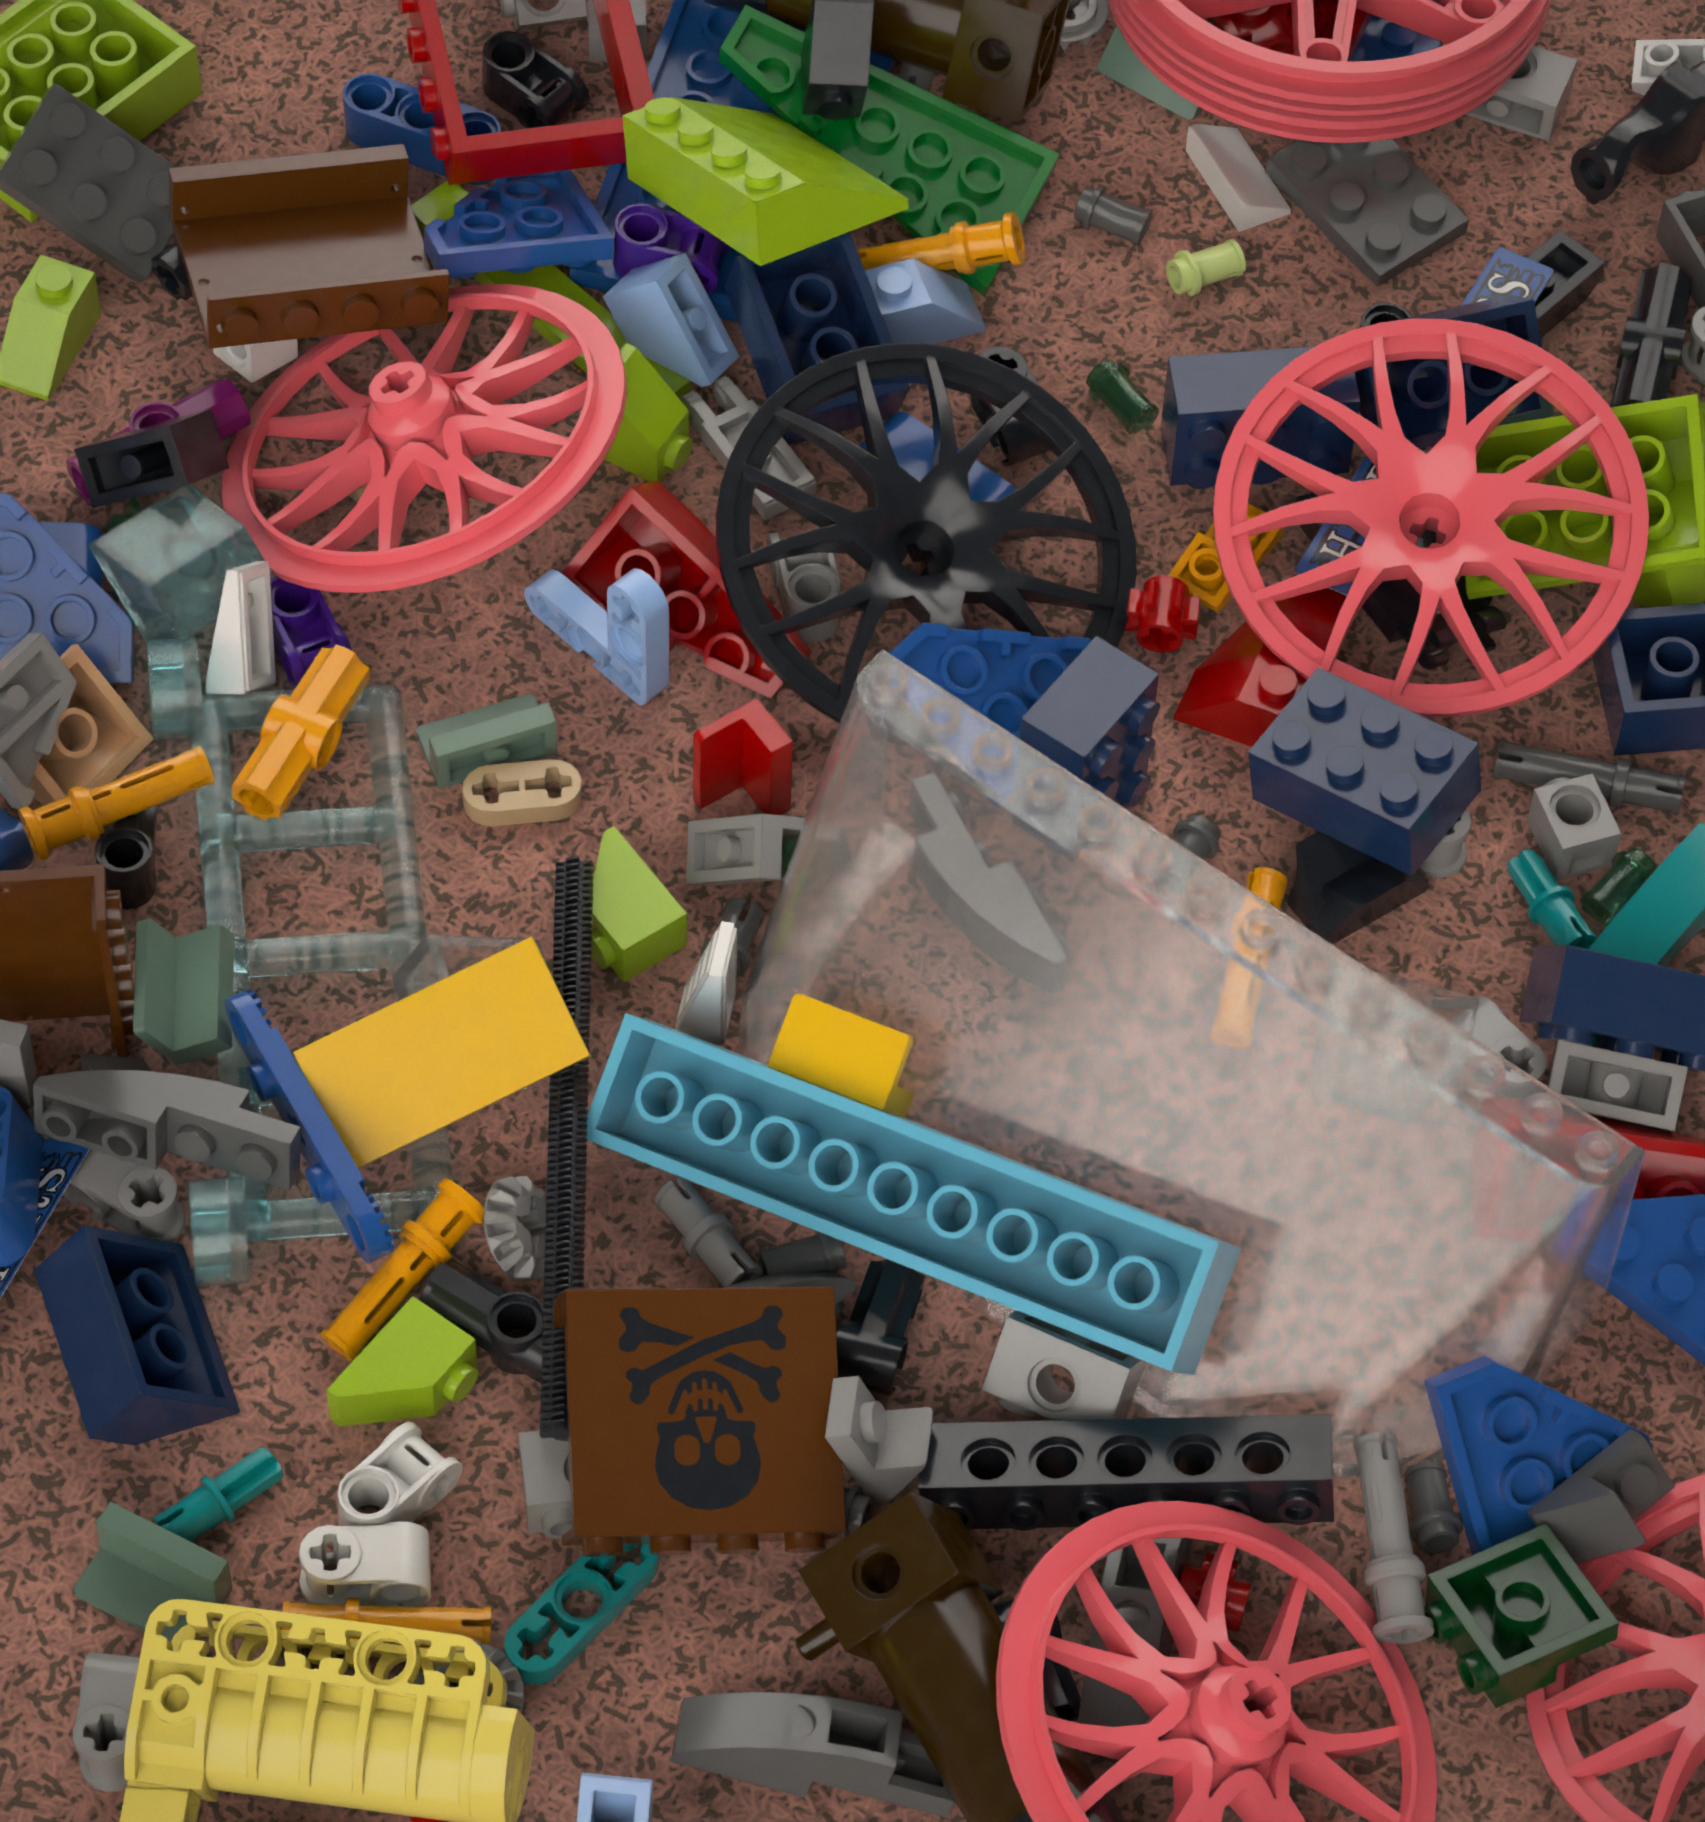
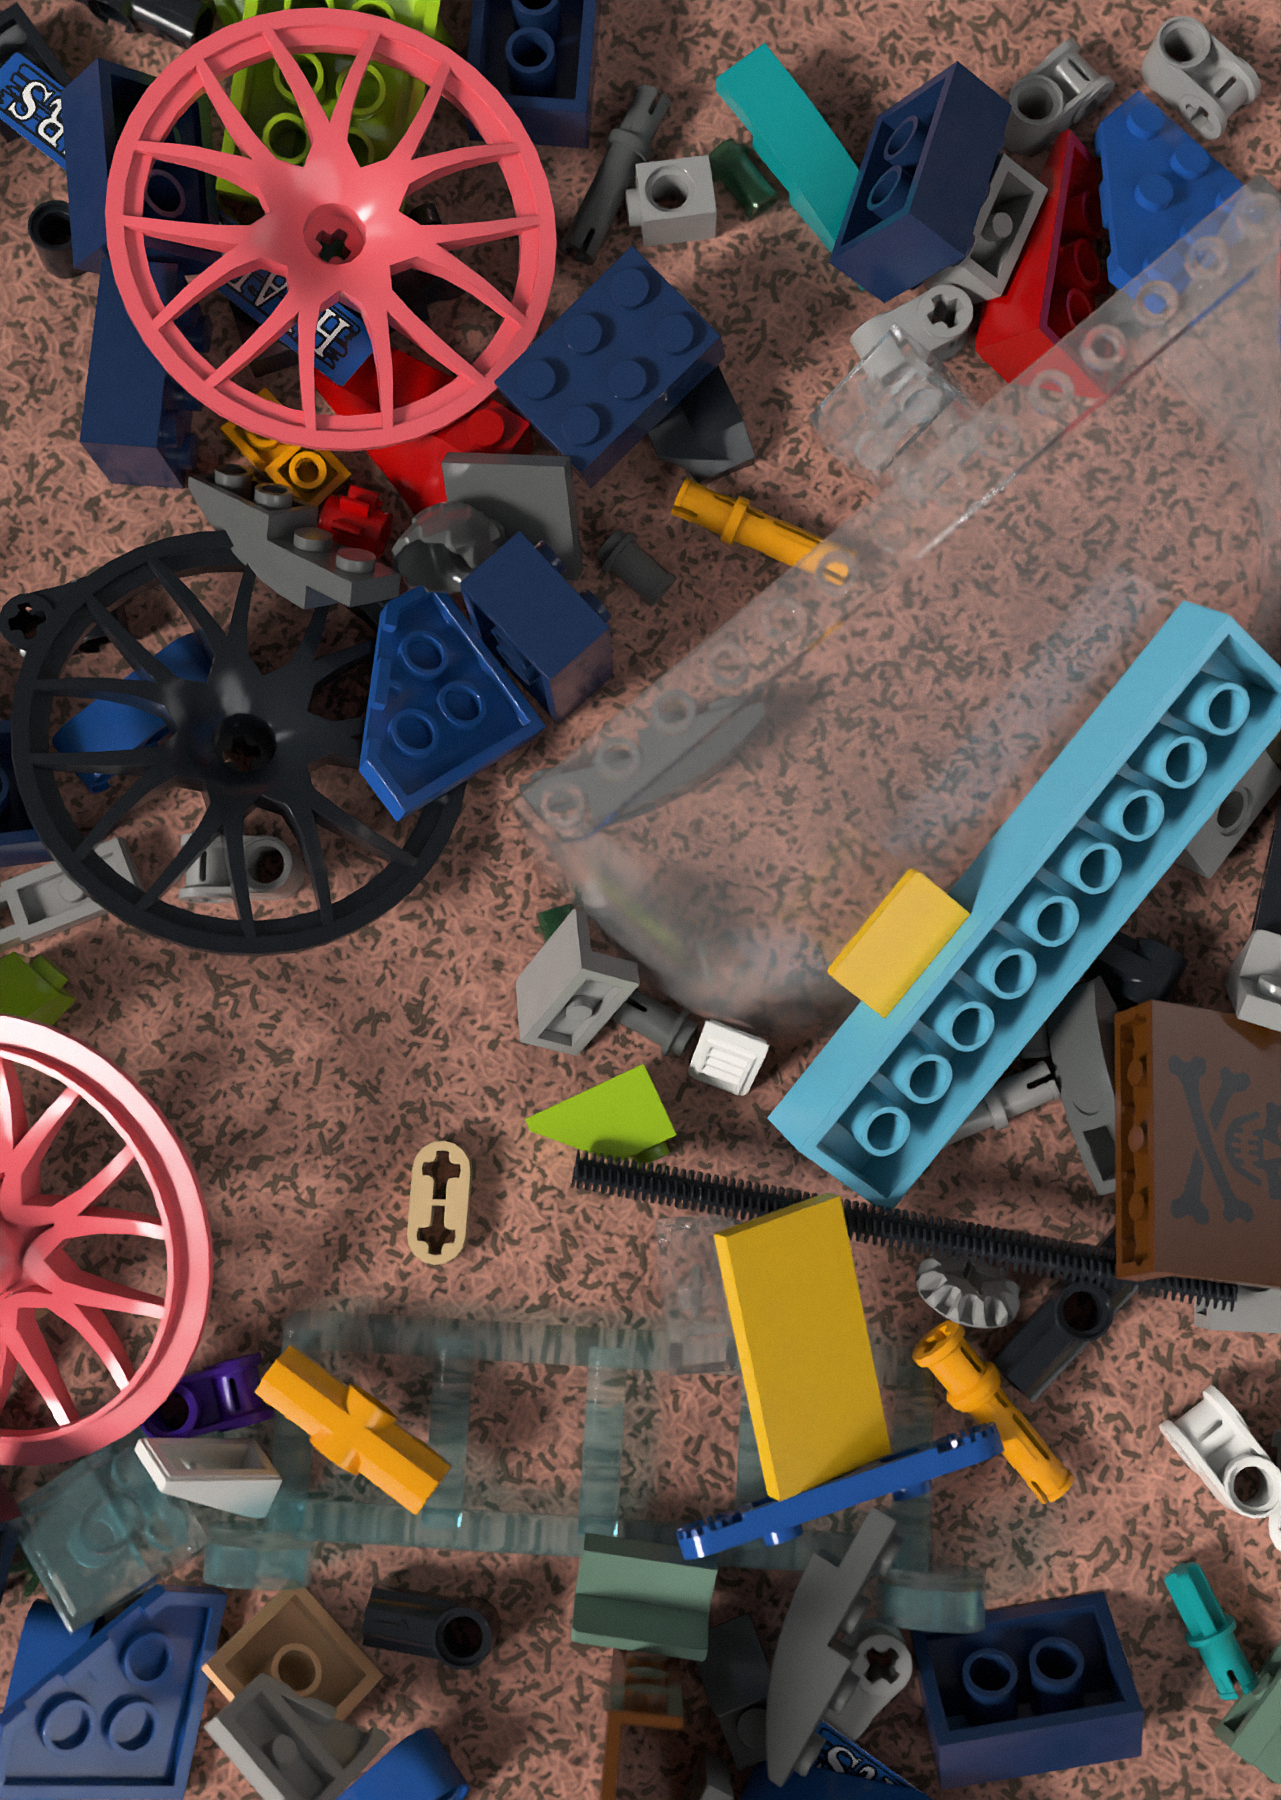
camera: 75 degrees left, 25 degrees up
(88, 811) = (413, 1672): light orange pin -> none
(406, 1370) = (1103, 1423): lime slope -> none
(488, 735) = (364, 1228): sand green panel -> none
(625, 641) = (299, 1063): light blue beam -> none
(673, 546) = (202, 1011): red wedge -> none
(745, 752) = (466, 958): red panel -> none
(1121, 396) = (70, 510): clear green pin -> none
(1128, 548) = (283, 544): none -> dark grey slope
(1166, 655) = (446, 546): none -> dark grey hair
(1202, 726) = (523, 495): none -> dark grey tile
(1548, 901) = (753, 245): teal axle -> none

